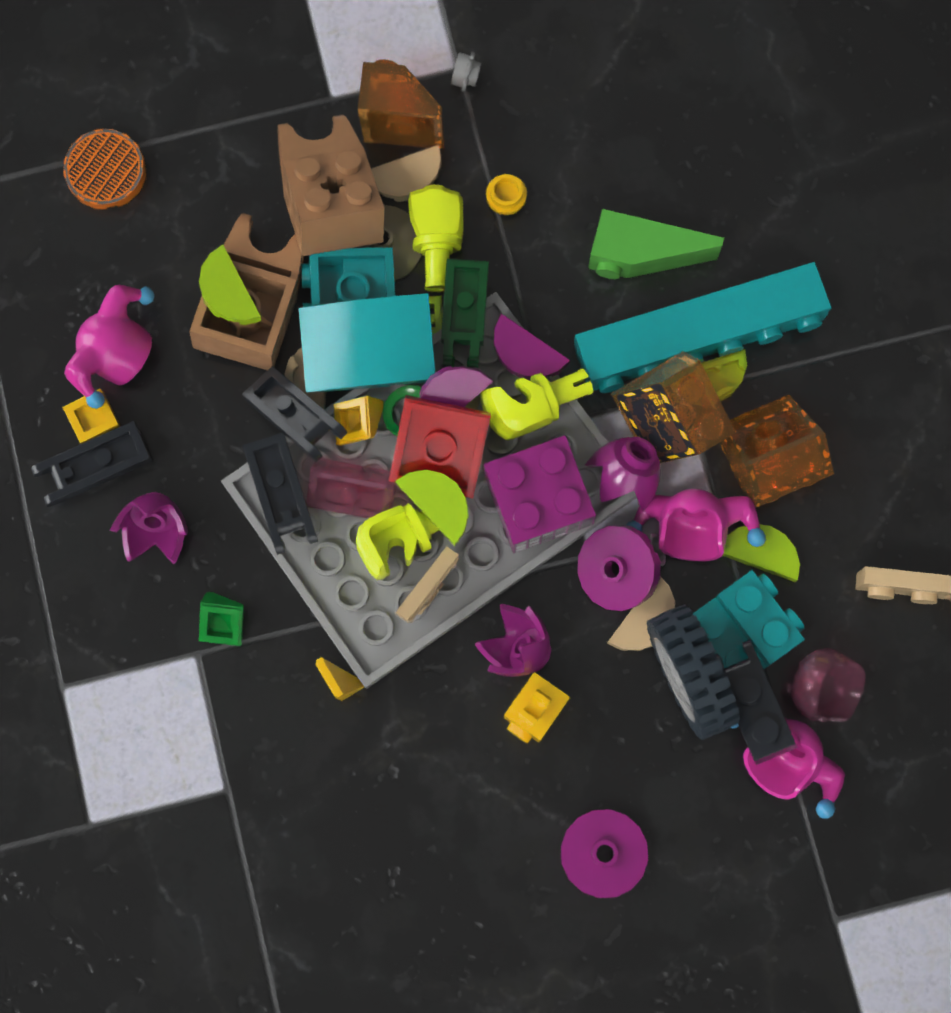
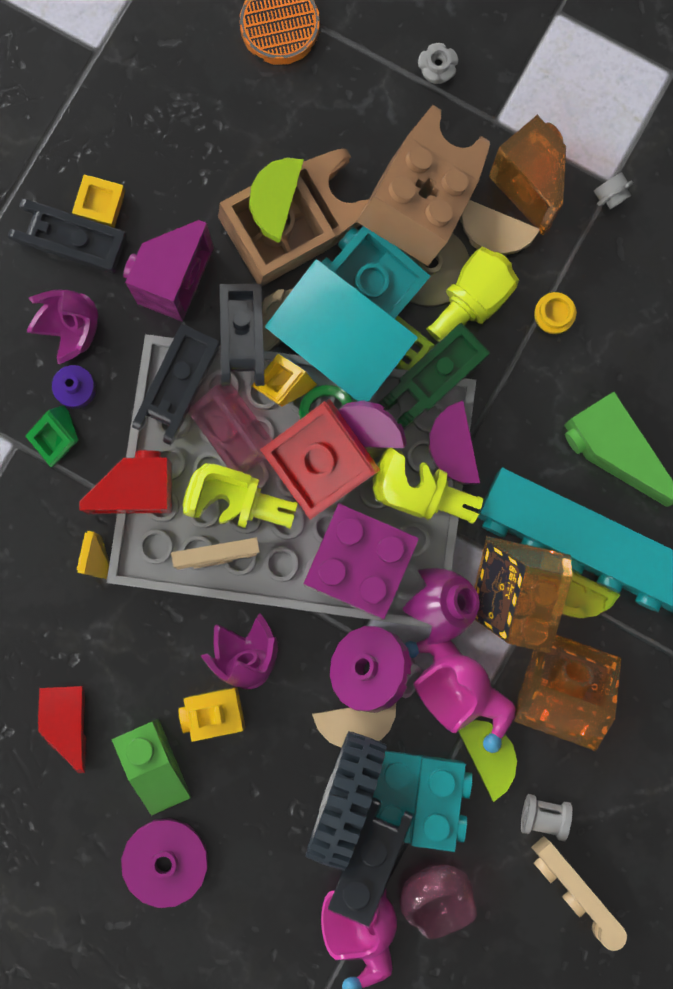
camera: 35 degrees right, 5 degrees up
(110, 344) = (159, 159): dark pink piece -> none
(195, 417) = (170, 269): none -> magenta slope
(208, 577) = (81, 391): none -> dark purple tile
(254, 103) = (433, 72): none -> light grey plate
(320, 596) = (133, 487): none -> red slope
(431, 822) = (63, 723): none -> red slope
(439, 500) = (280, 499): lime tile -> none
(528, 790) = (151, 767): none -> bright green slope
(845, 555) = (546, 817): none -> light grey bush

